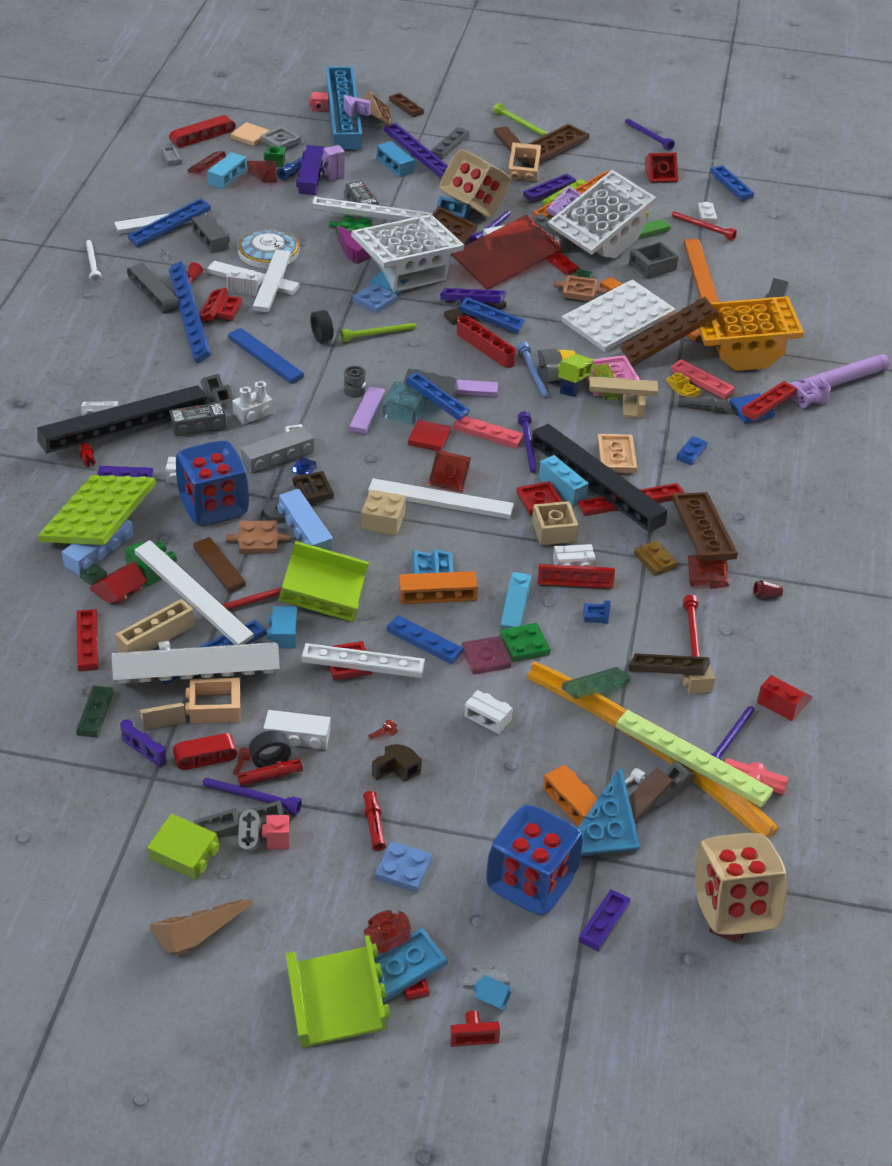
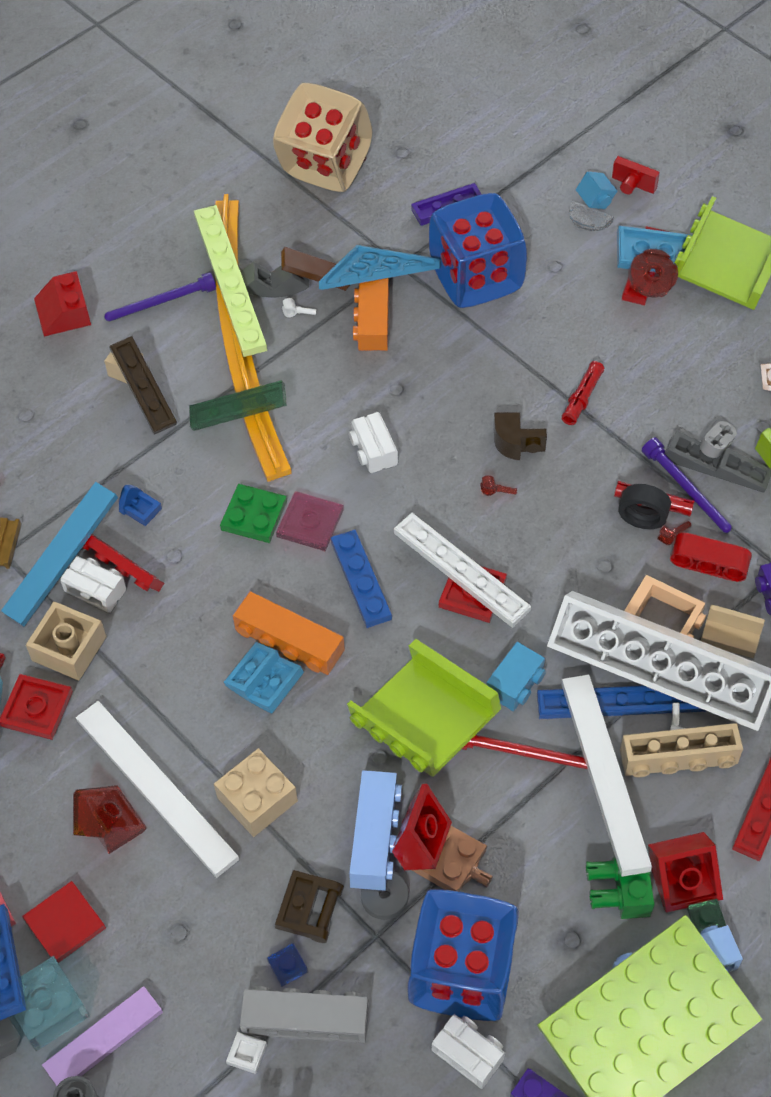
camera: 140 degrees left, 15 degrees up
(219, 564) = (528, 839): reddish brown tile -> none
(274, 518) = (422, 832): none -> red slope
(276, 832) = (692, 420): coral brick -> none
(300, 729) = (593, 529): white brick -> none
(403, 866) = (586, 340): medium blue plate -> none
(516, 600) = (215, 564): medium azure slope -> none
(606, 556) = (59, 554): none -> dark azure tile
(690, 604) = (31, 456): red piece -> none
(760, 773) = (184, 248): coral piece -> none

